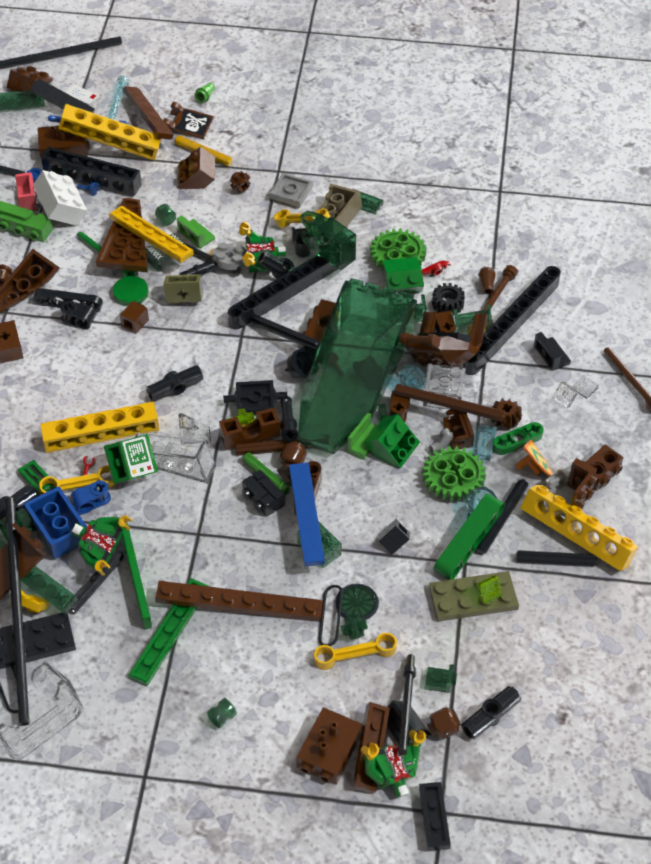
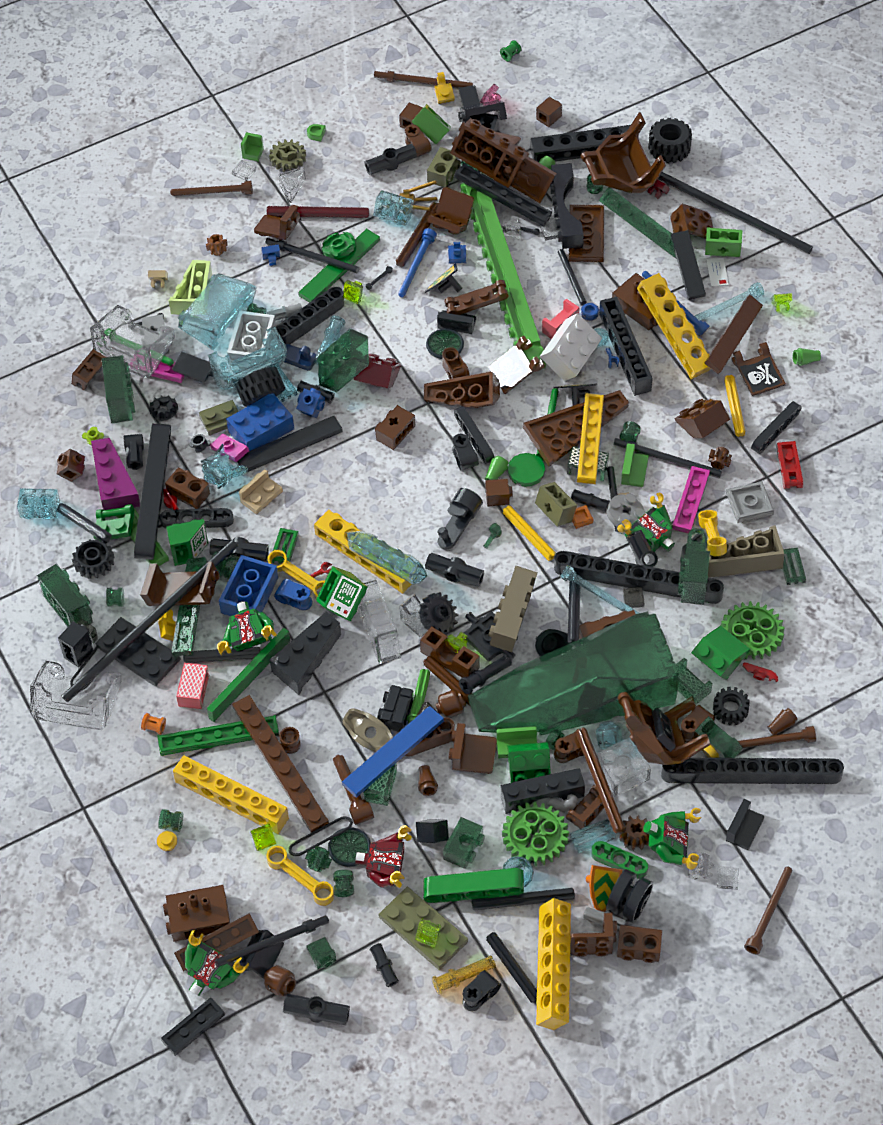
camera: 55 degrees right, 5 degrees up
(37, 237) = (515, 366): none -> flag
(66, 72) = (723, 242): none -> bright green brick
(100, 222) = (576, 393): none -> black shield
(107, 617) = (192, 686): none -> coral panel
(112, 305) = (497, 468): none -> bright green cone
(114, 670) = (153, 723): none -> orange bush
(125, 411) = (387, 557): none -> clear light blue brick
(128, 343) = (463, 509): none -> black piece
(146, 75) = (781, 299): none -> clear neon green tile
(157, 526) = (305, 652): none -> black wedge
(165, 339) = (496, 532): none -> clear green hand
(179, 322) = (529, 533): none -> yellow axle
(206, 413) = (438, 613): none -> black gear
(207, 209) = (666, 457): none -> black bar
(208, 285) = (582, 517): none -> orange tile
(224, 578) = (290, 740): none -> reddish brown wheel
(237, 653) = (230, 794): none -> yellow brick
(237, 729) = (167, 841): none -> yellow plate
(246, 140) = (776, 427): none -> black beam
(251, 524) = (357, 724): none -> dark tan piece
(252, 364) = (512, 609): none -> dark tan wedge
(253, 315) = (570, 575): none -> clear light blue piece
(256, 217) = (690, 499): none -> dark pink plate
(283, 152) = (789, 464): none -> red plate
(297, 655) = (263, 837): none -> clear neon green tile
(304, 298) = (633, 597): none -> clear smoke tile
(333, 572) = (359, 808): none -> reddish brown axle
(346, 469) = (472, 751): none -> reddish brown bracket
(346, 513) = (427, 784): none -> reddish brown cone
(390, 623) = (343, 883): none -> clear green wheel
(396, 582) = (386, 859): none -> torso
(416, 454) = (541, 787): none -> black arch
(422, 522) = (464, 832): none -> clear green brick
(487, 641) = (384, 965): none -> black pin
(532, 395) = (670, 837): none -> torso
(536, 600) = (454, 976): none -> clear yellow pin
(561, 444) = (629, 896): none -> black wheel
(562, 591) = (480, 991): none -> black piece

